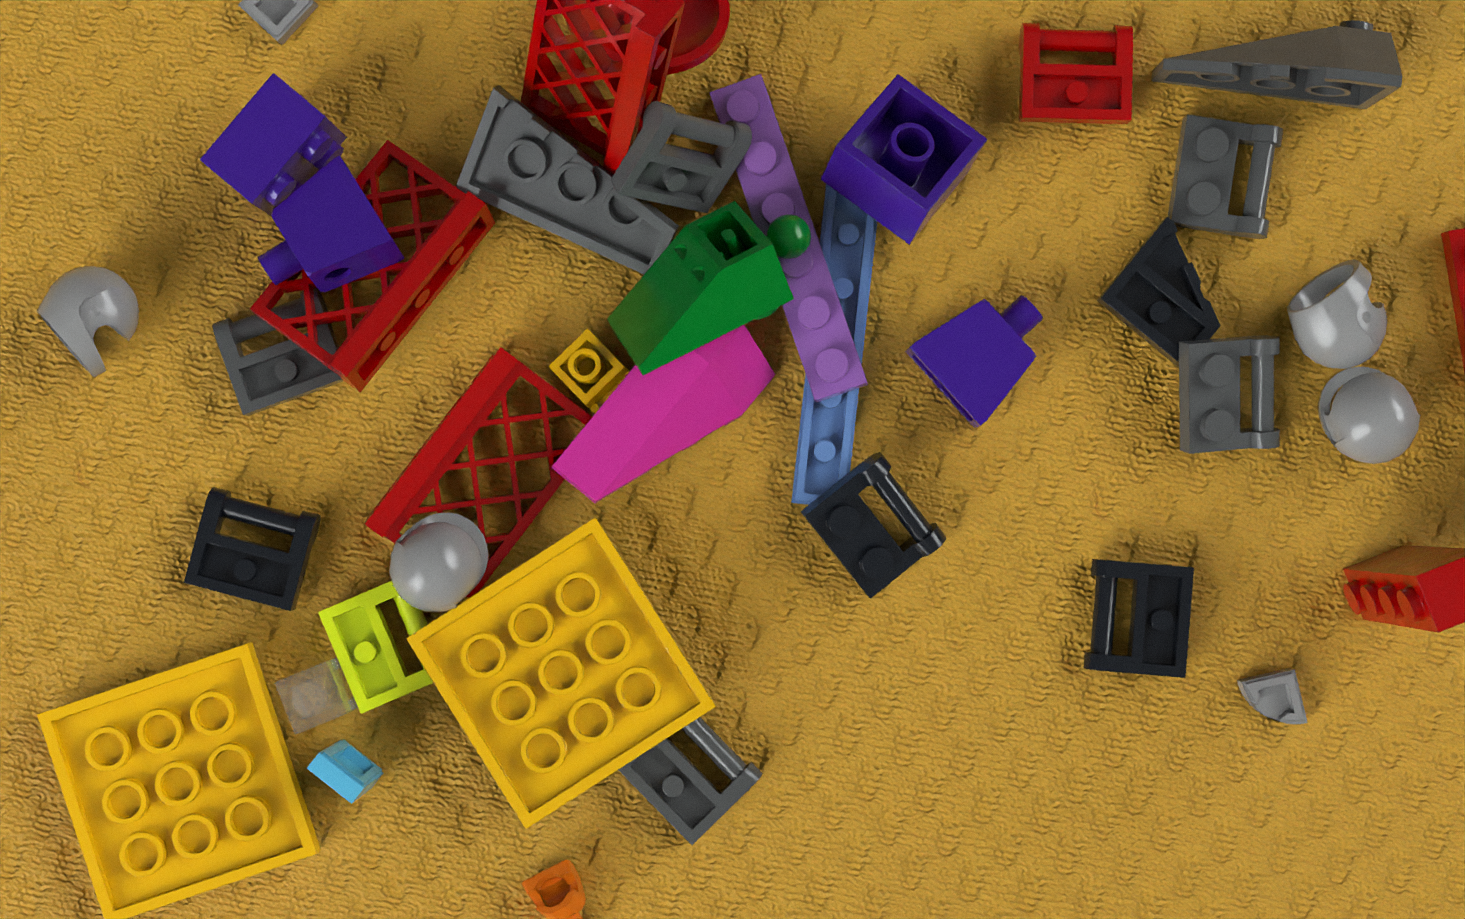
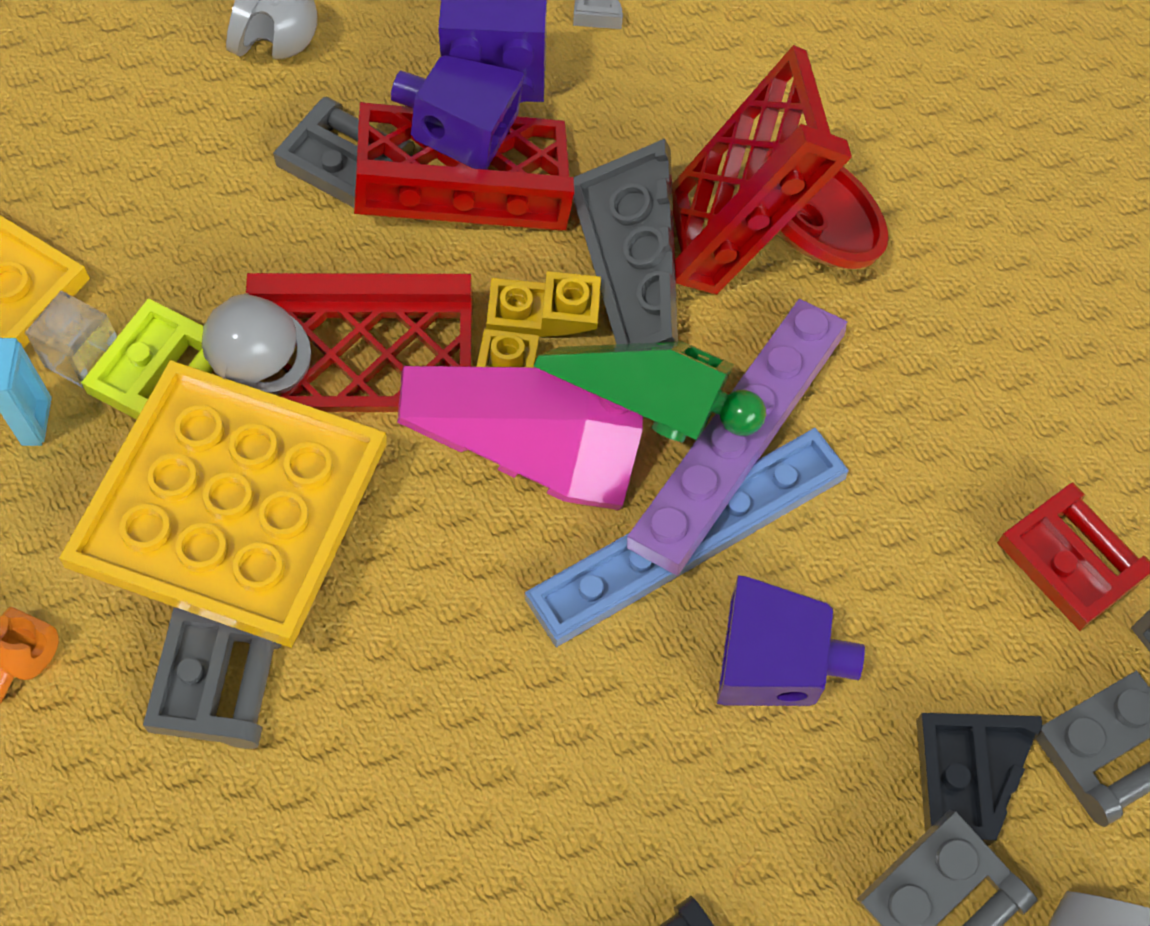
camera: 50 degrees right, 25 degrees down
(247, 567) = (152, 238): black plate -> none
(559, 300) = (552, 308): none -> yellow slope
(675, 173) = (714, 299): dark grey plate -> none
(857, 534) = (540, 666): black plate -> none
(903, 158) = (884, 458): dark purple brick -> none

